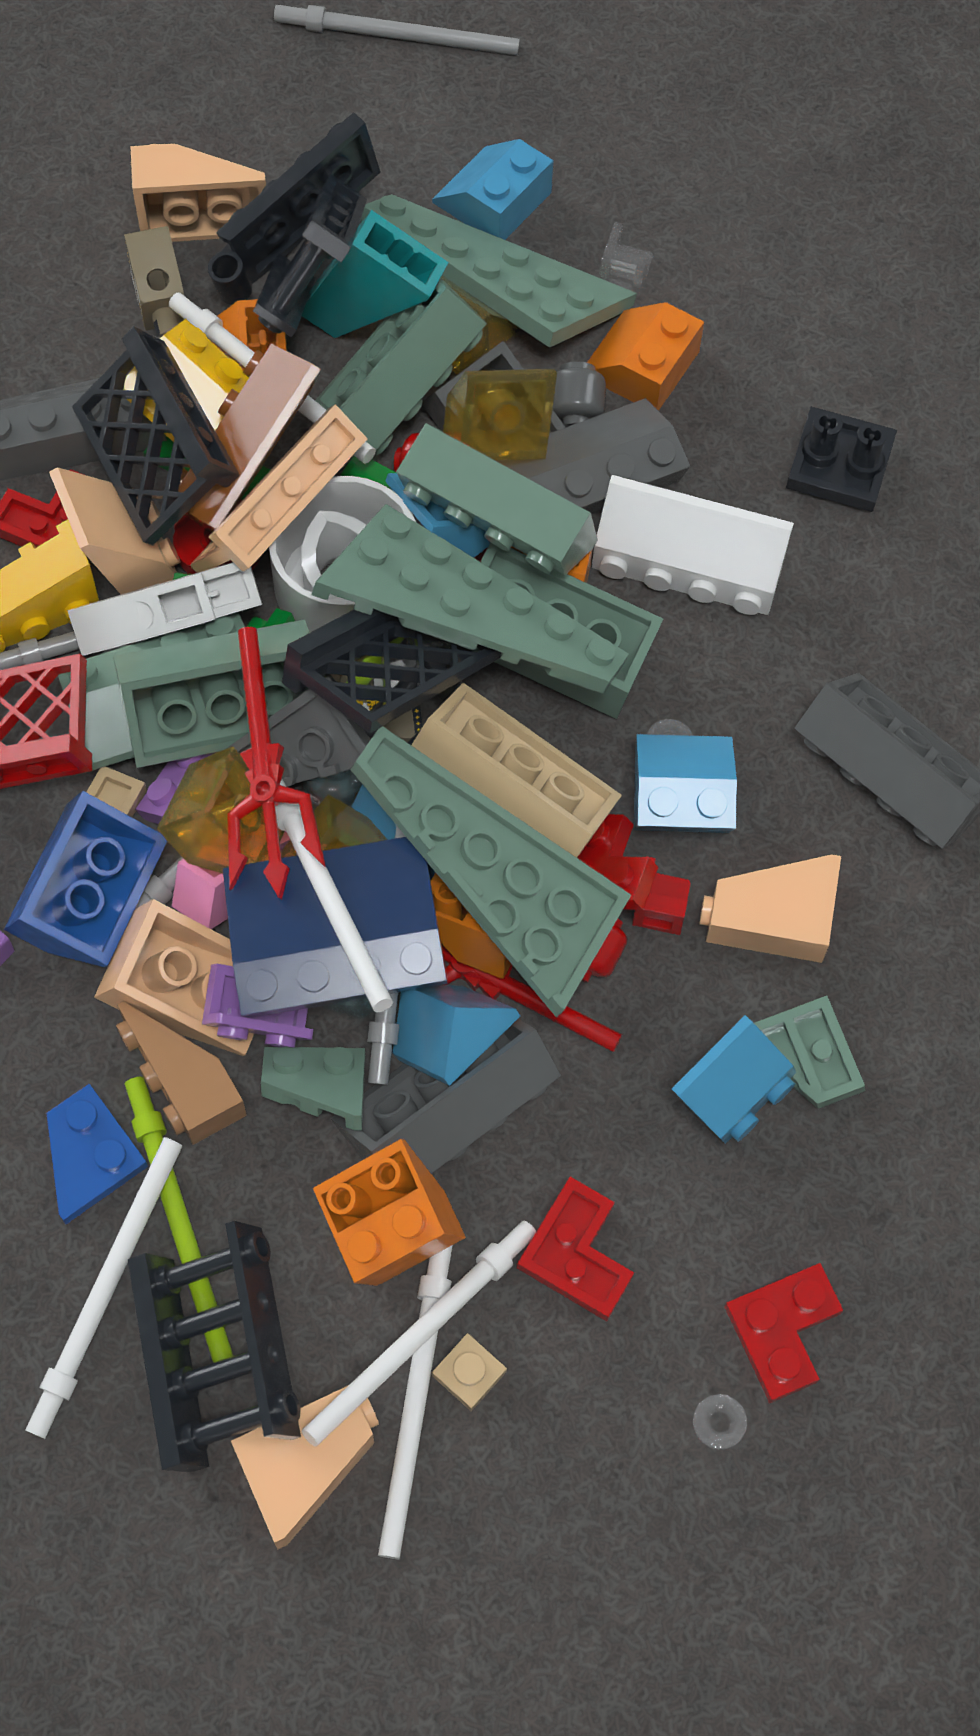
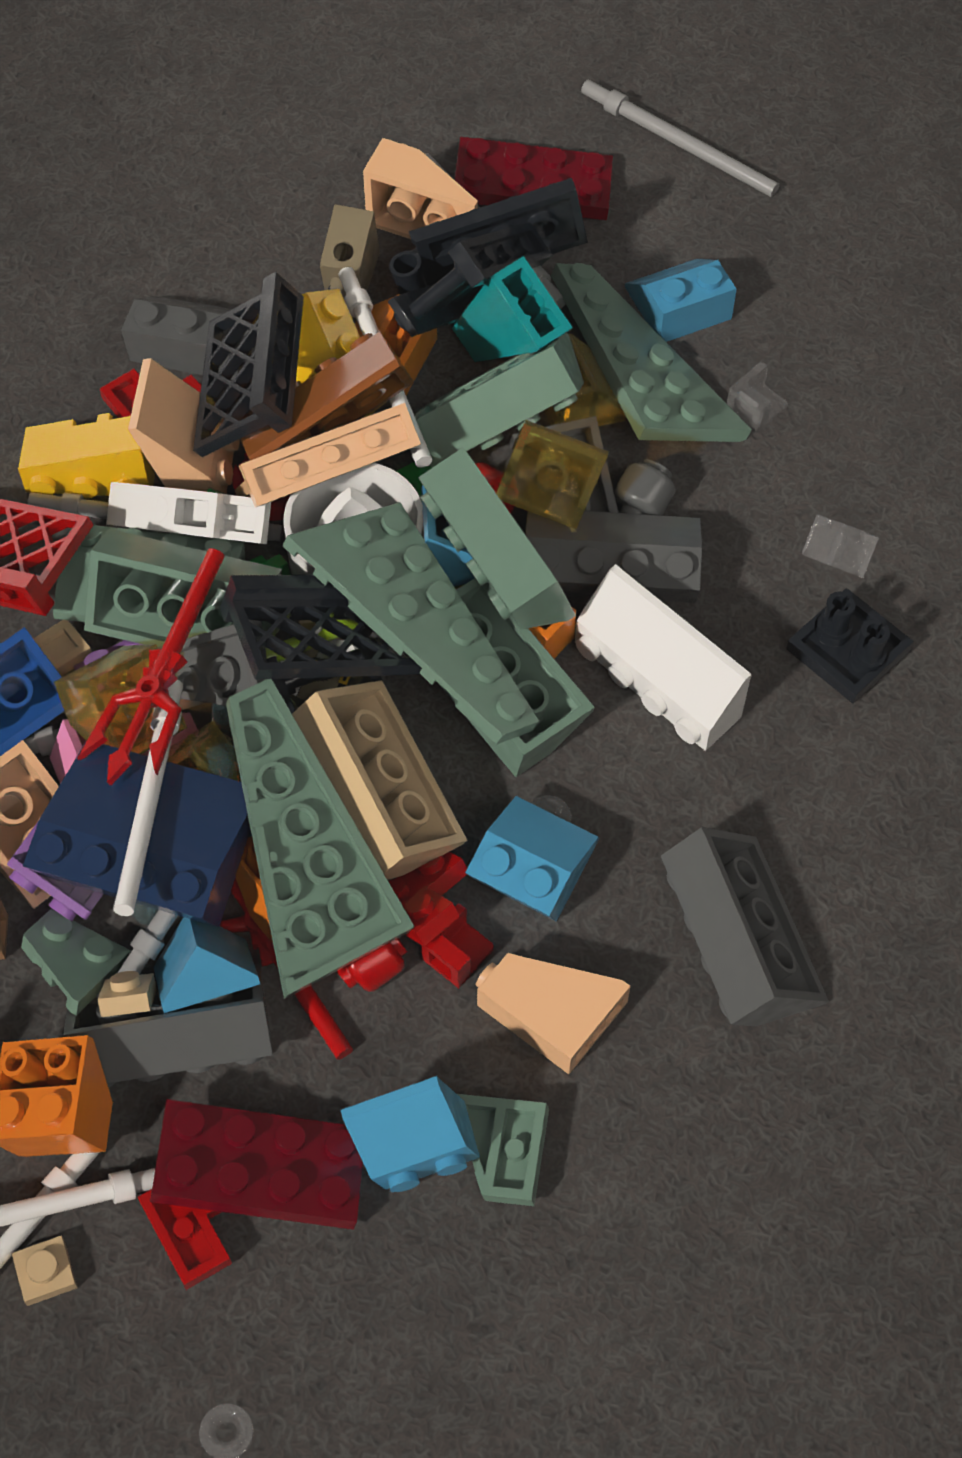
camera: 30 degrees right, 5 degrees down
(277, 126) = (505, 169): none -> dark red plate
(398, 1087) = (127, 994): none -> tan plate
(609, 1177) = (257, 1165): none -> dark red plate
(648, 352) = (729, 485): orange slope -> none
(770, 1325) = (323, 1368): red plate -> none
(780, 369) = (840, 545): none -> clear panel

